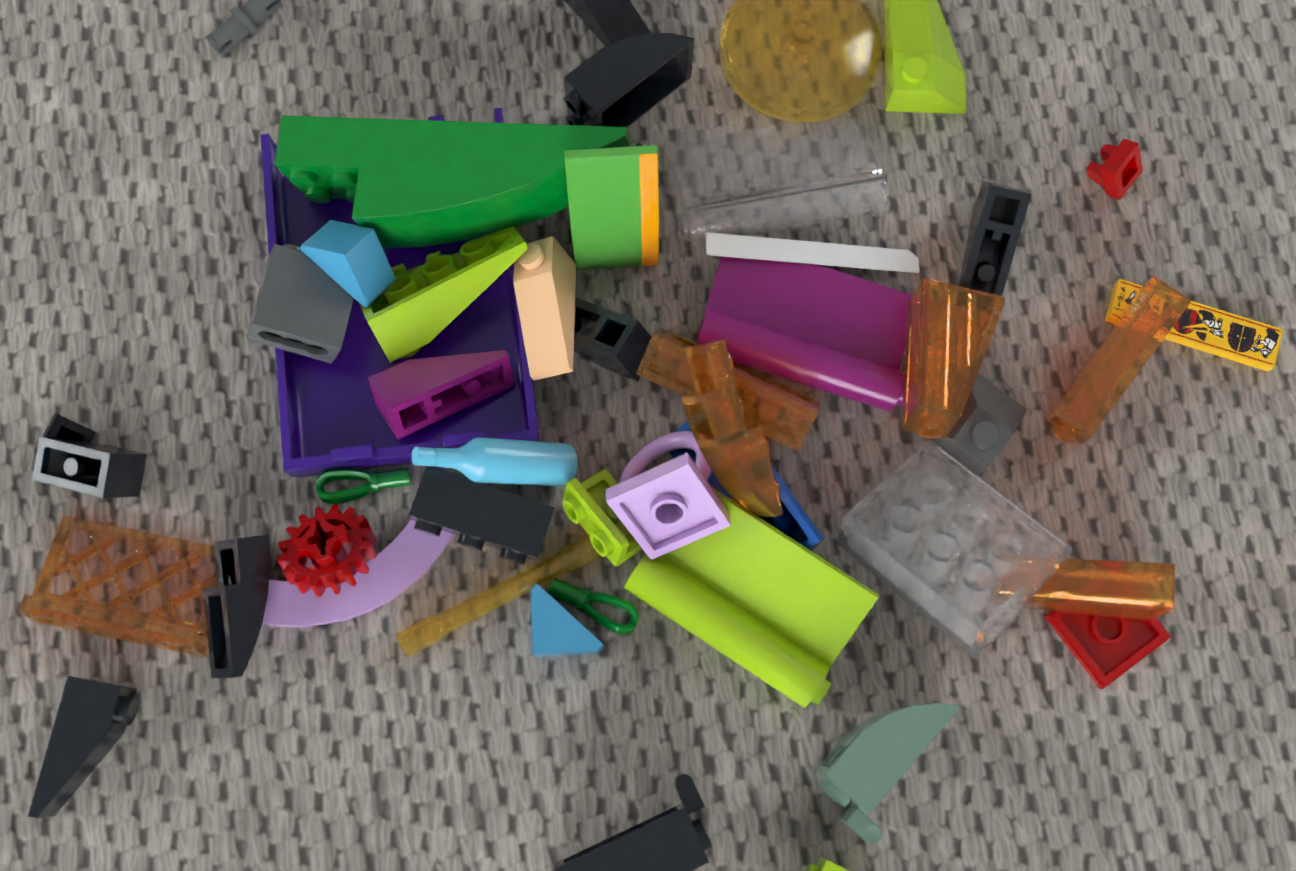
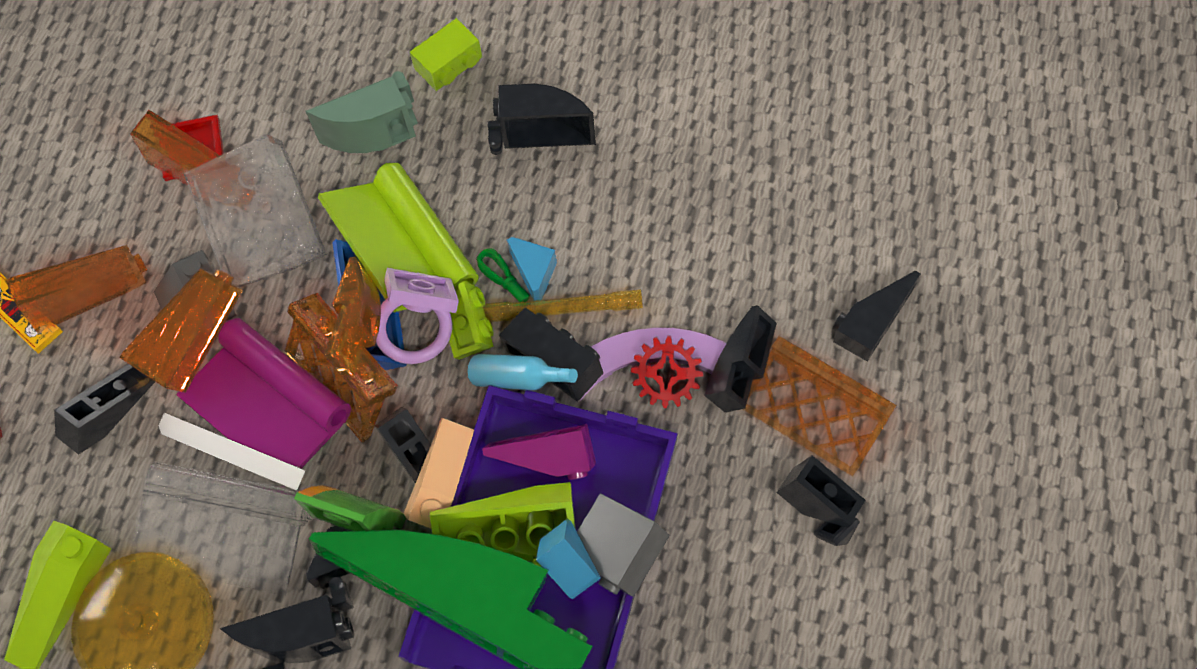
camera: 150 degrees left, 10 degrees down
(375, 479) = (644, 410): green piece -> none

